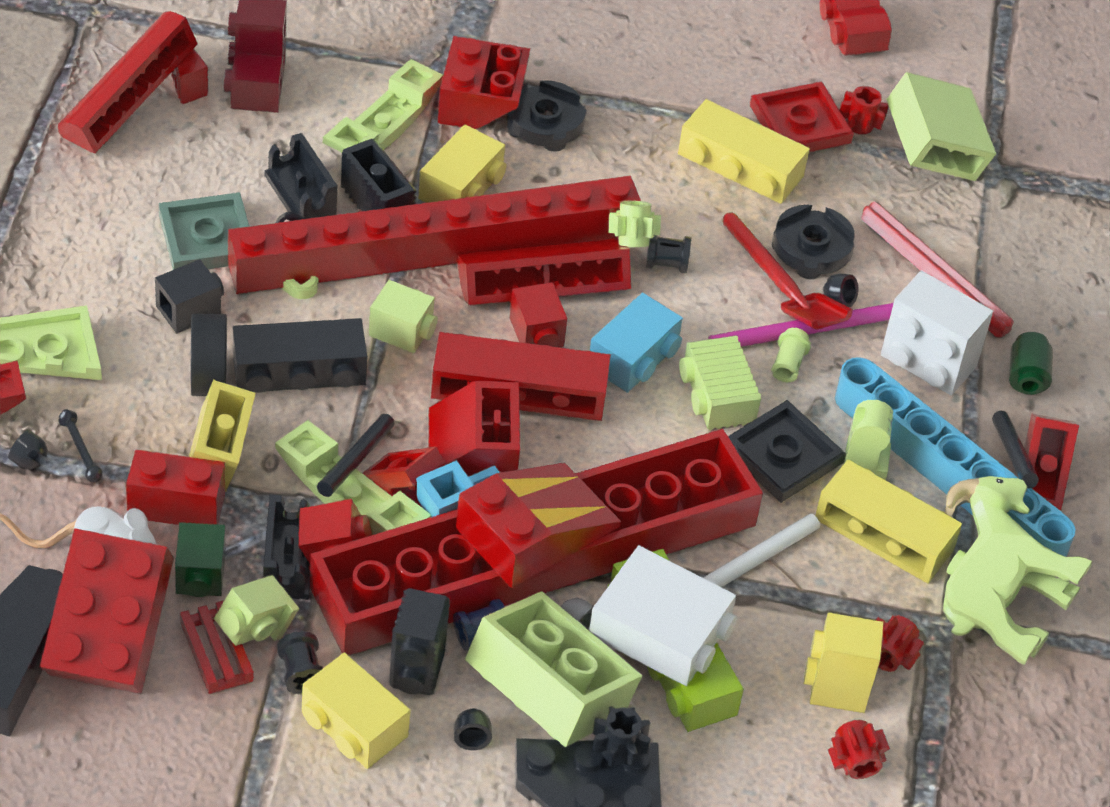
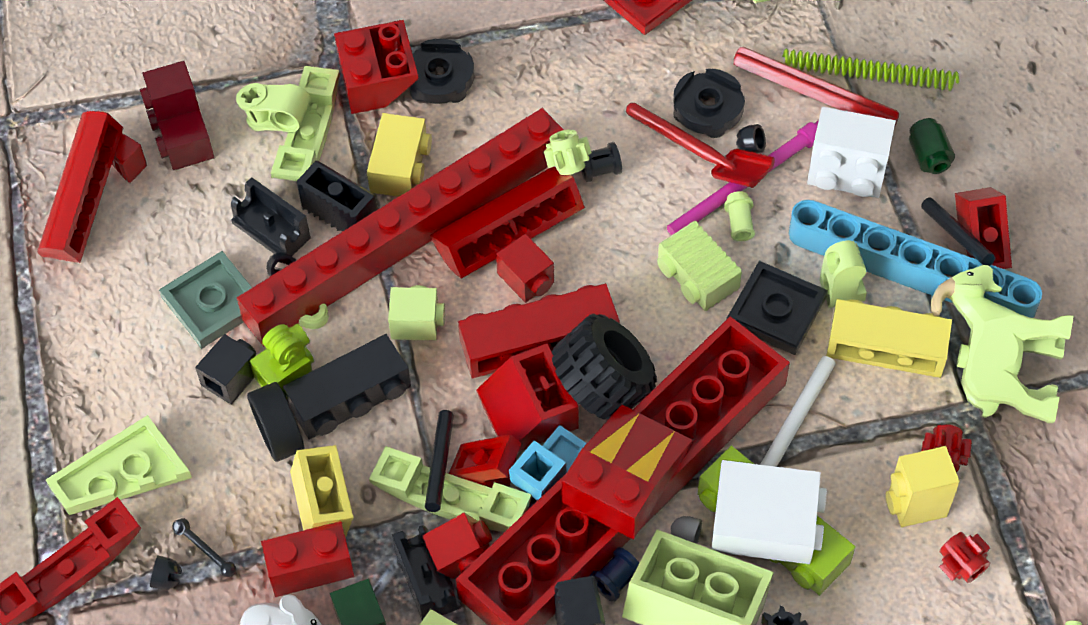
camera: 15 degrees left, 10 degrees up
(249, 299) = (284, 357): none -> lime brick
(359, 82) = (273, 106): none -> yellowish green piece
(566, 421) = (603, 366): none -> black tyre
(638, 341) = (615, 255): medium azure brick -> none
(743, 151) = (615, 42): light yellow brick -> none
(1001, 277) = (870, 66): none -> lime piece

